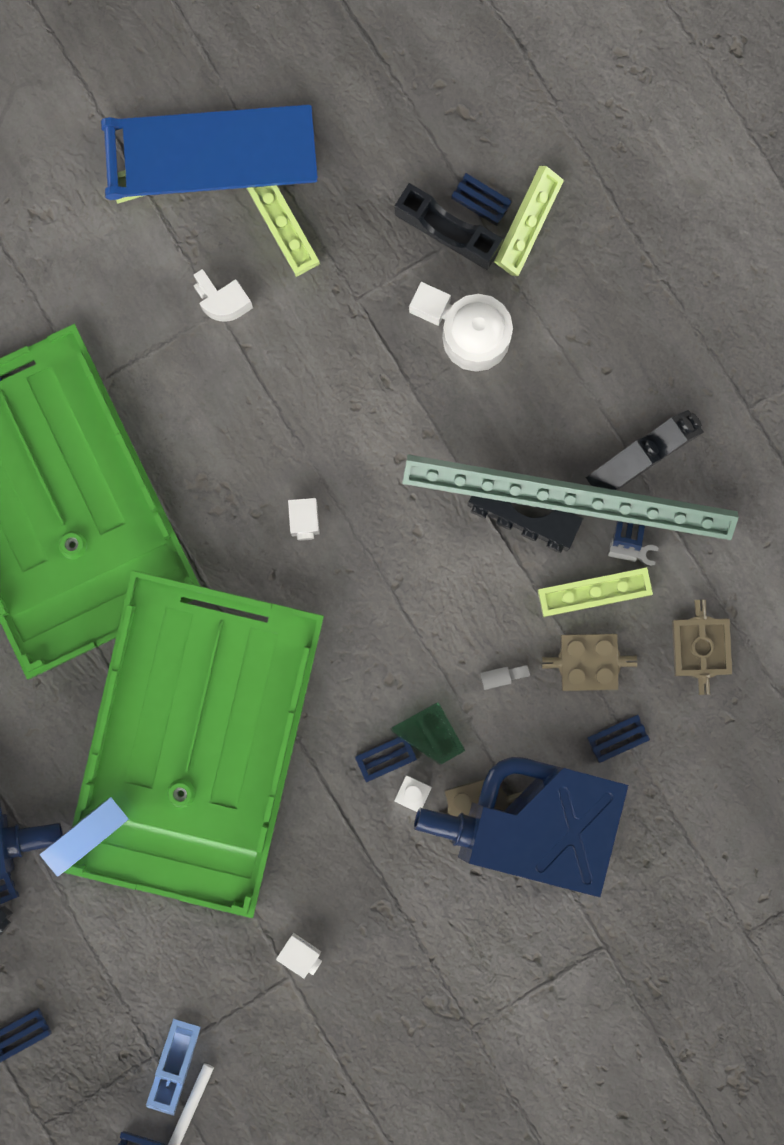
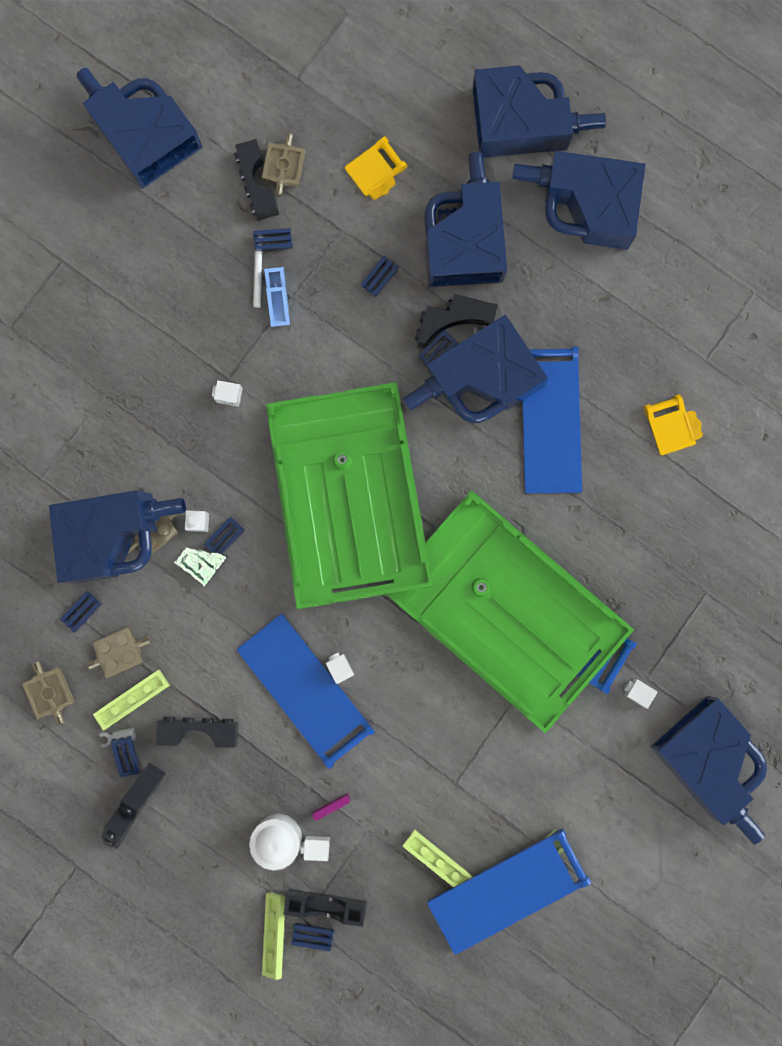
camera: 155 degrees right, 0 degrees up
(84, 836) = (389, 407): light blue slope -> none
(223, 304) = (454, 788): white brick -> none
(363, 513) = (304, 689): none -> blue flag
(389, 347) = (331, 807): none -> magenta tile
(503, 676) = (169, 620): light grey bar -> none
(569, 497) = (169, 755): plate -> none

